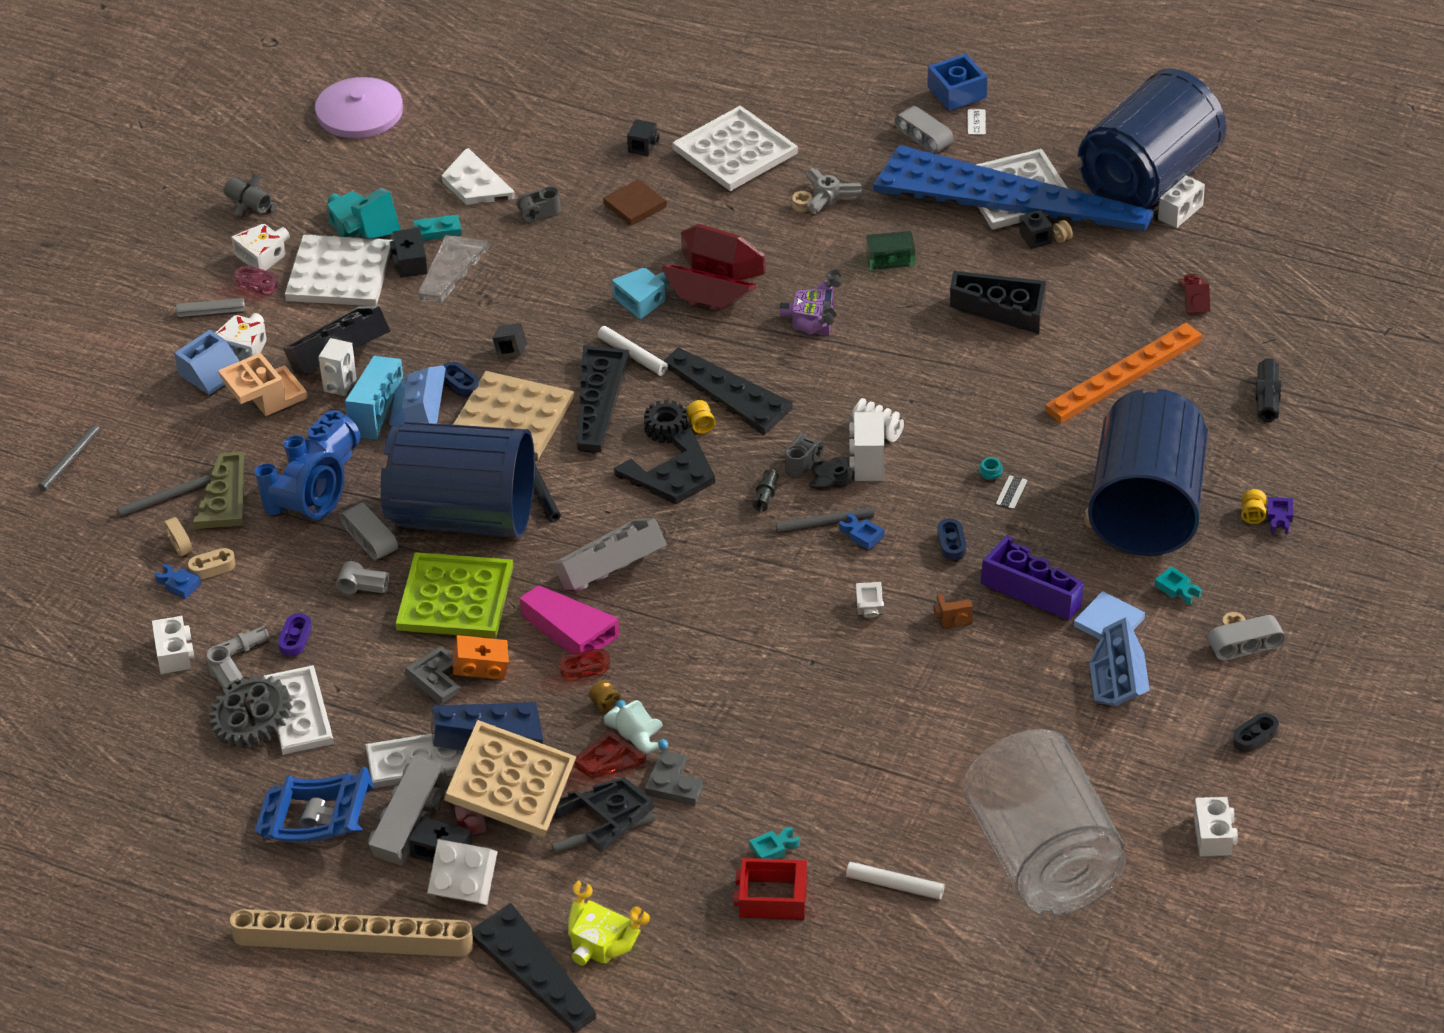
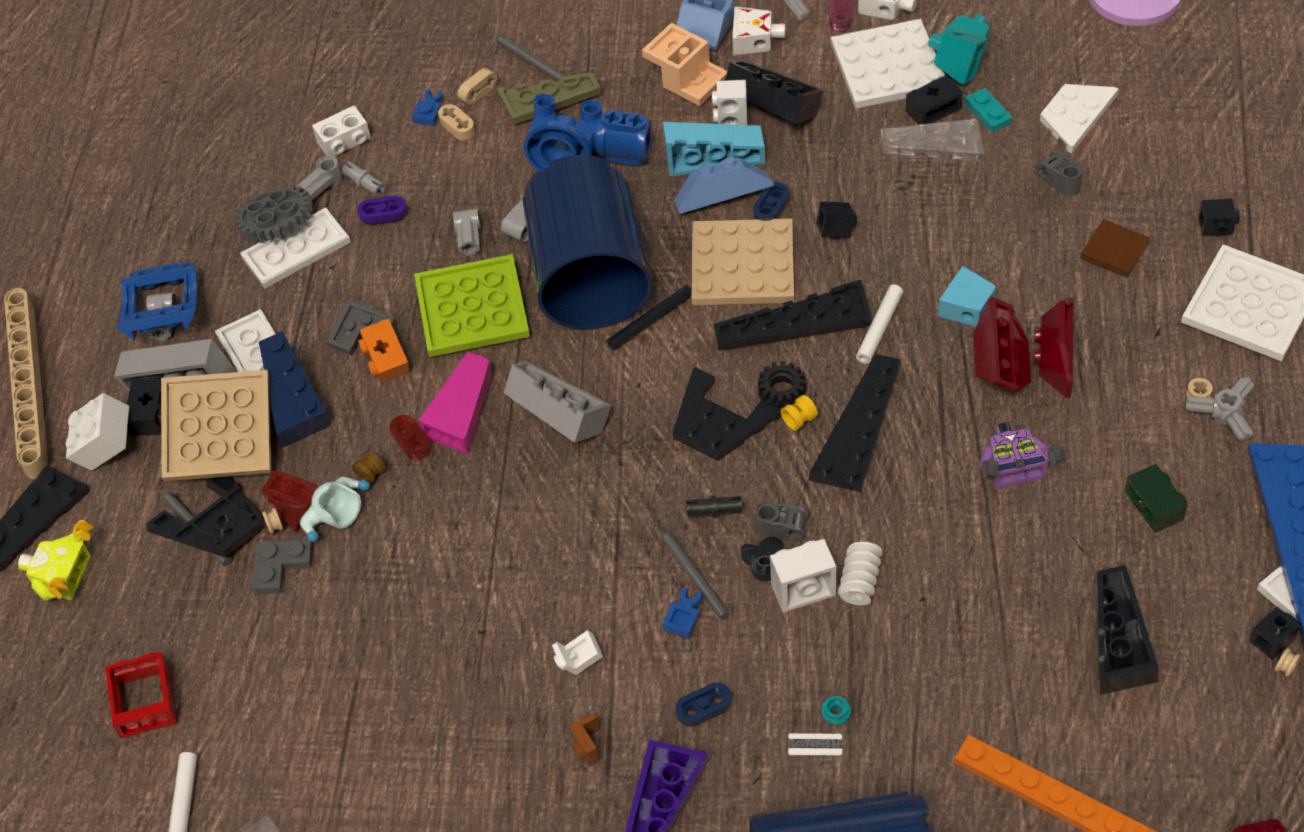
camera: 75 degrees right, 10 degrees up
(628, 766) = (272, 521): none -> tan bush
(772, 846) = (203, 674): teal plate -> none

